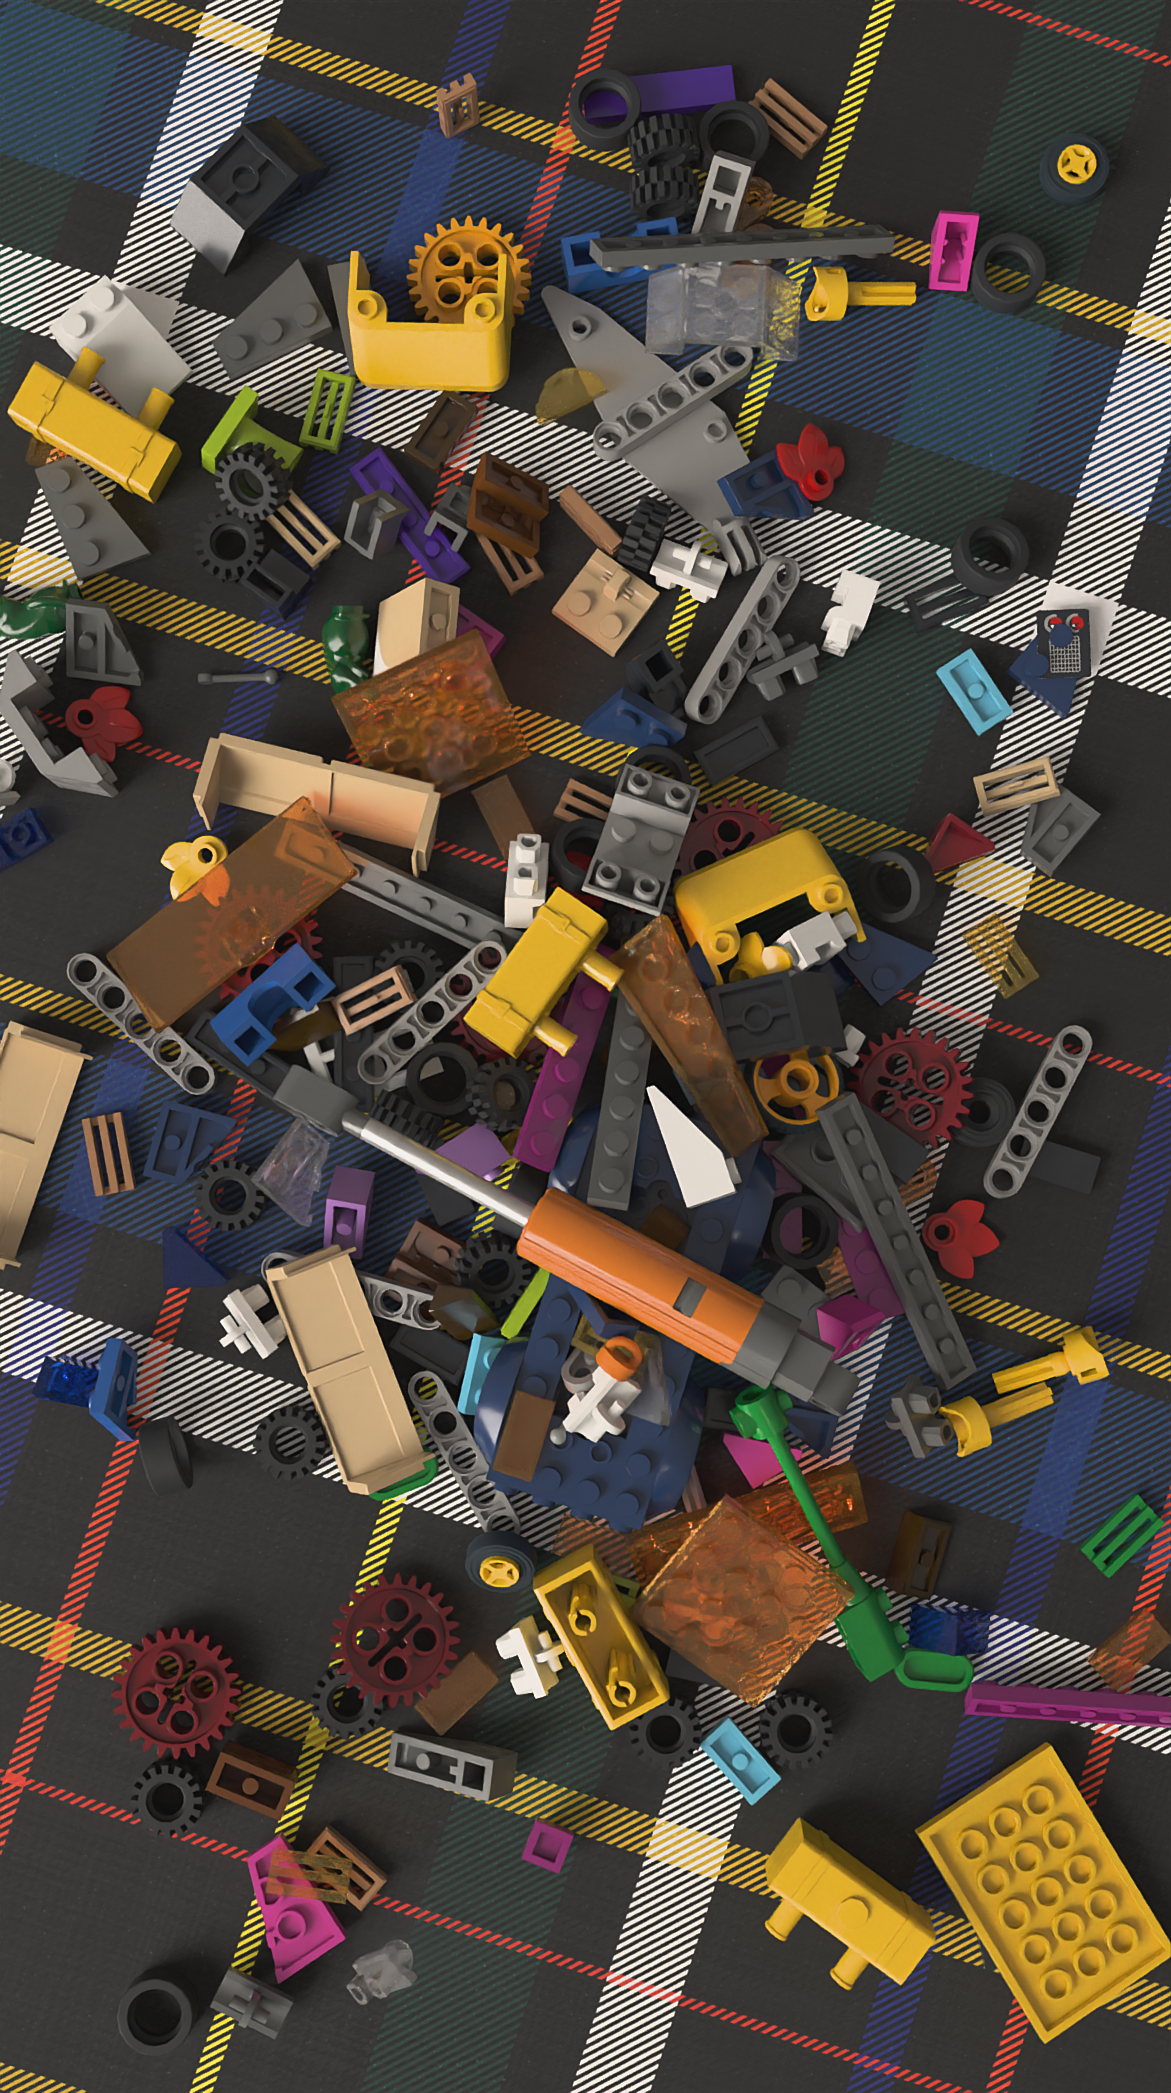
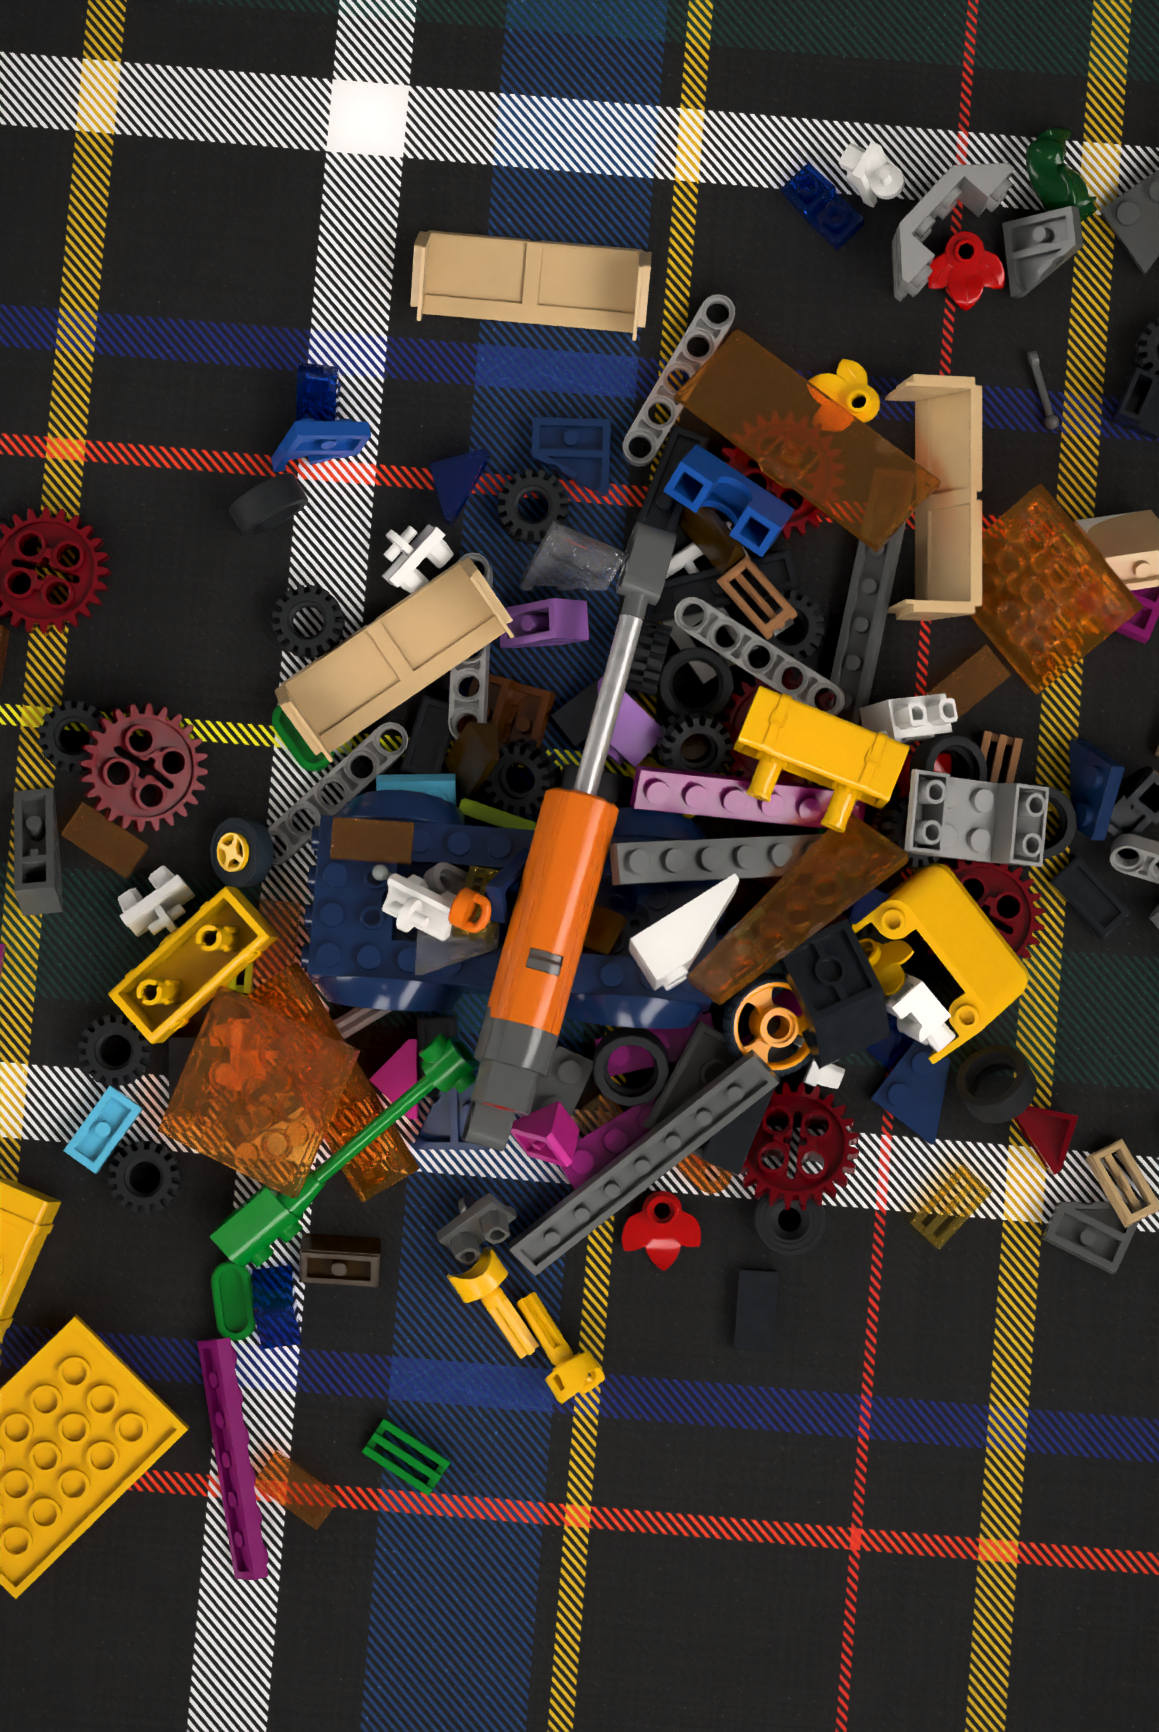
camera: 75 degrees right, 0 degrees up
(94, 1158) = (534, 367): medium nougat tile -> none
(345, 645) = (1097, 486): dark green animal -> none
(1051, 1097) = (821, 1288): light grey beam -> none

